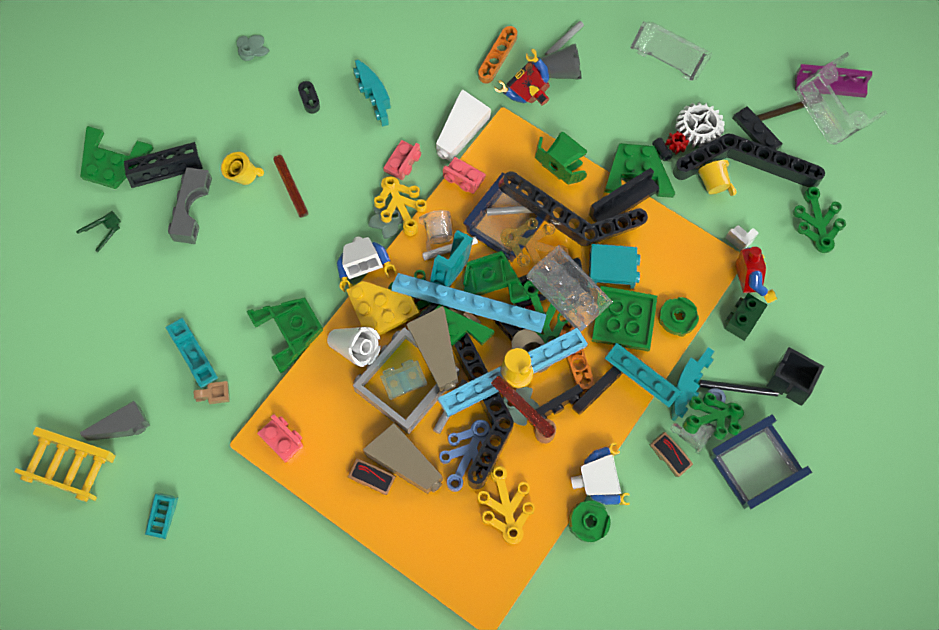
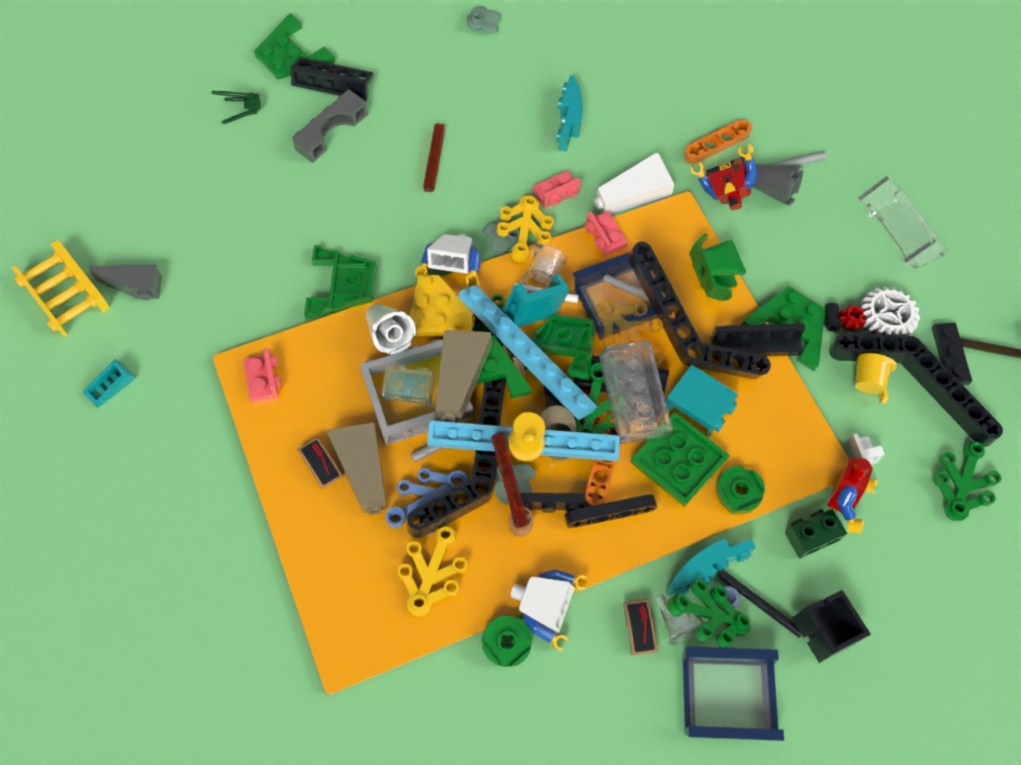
camera: 30 degrees right, 5 degrees down
(192, 352) = (240, 254): teal slope -> none
(216, 393) = (232, 302): medium nougat plate -> none
(239, 168) = (395, 116): yellow hat -> none
(306, 98) = (509, 89): black beam -> none
(643, 375) = (659, 524): teal fence -> none

